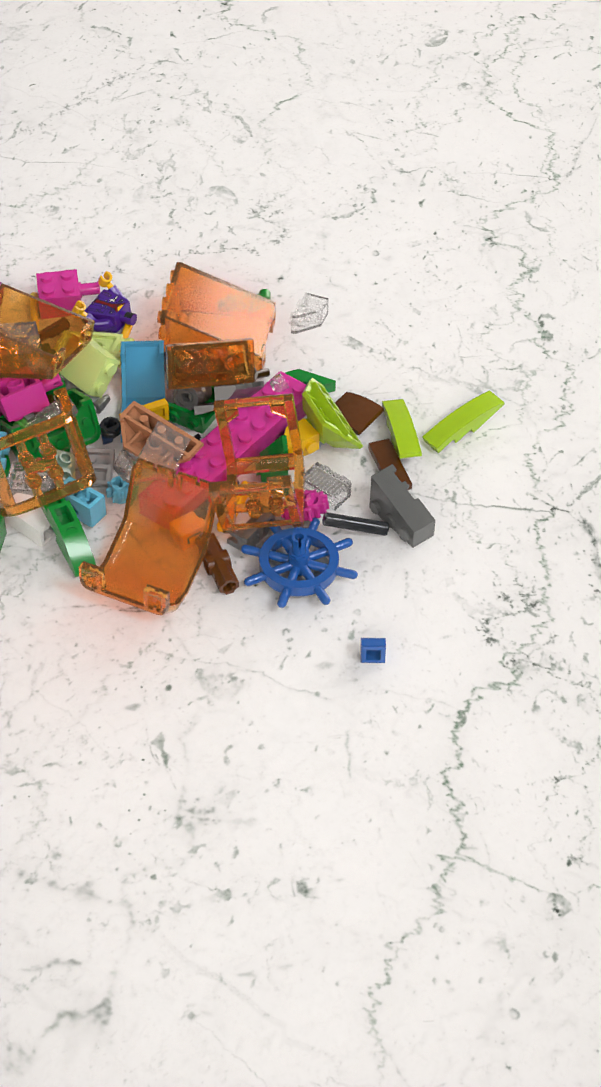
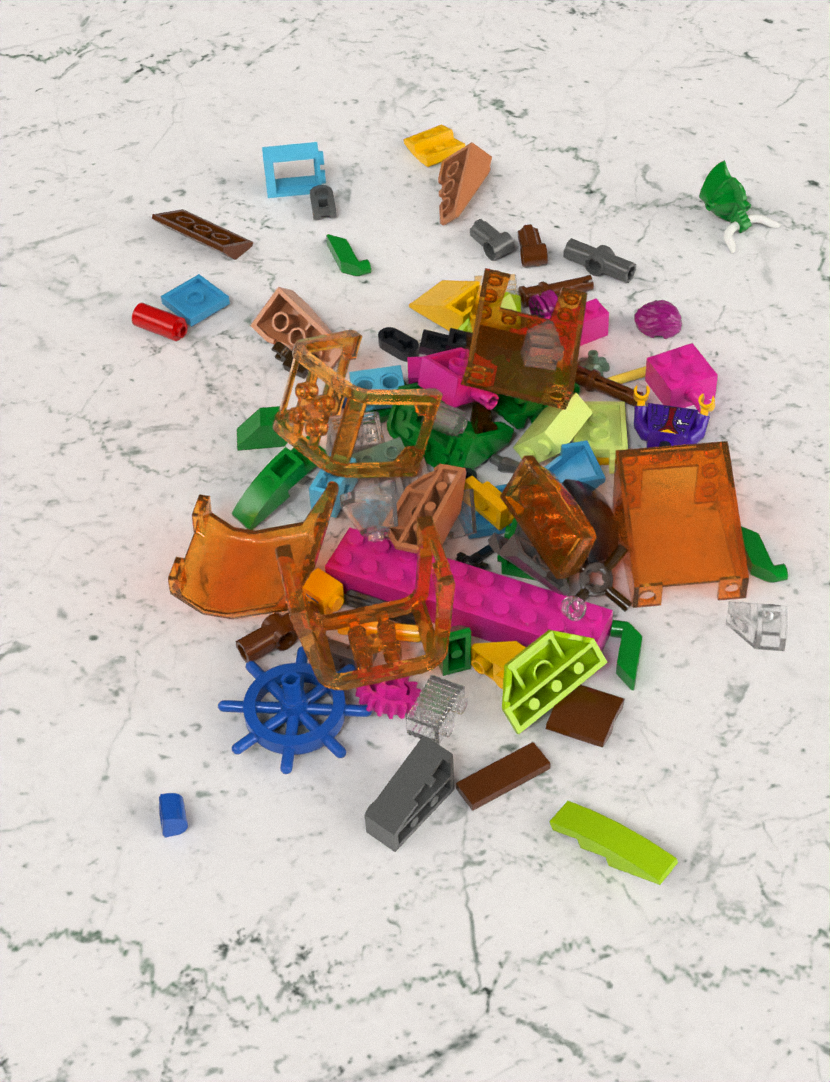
camera: 80 degrees right, 0 degrees up
(355, 523) = (372, 750): black axle -> none
(401, 428) = (572, 769): lime slope -> none

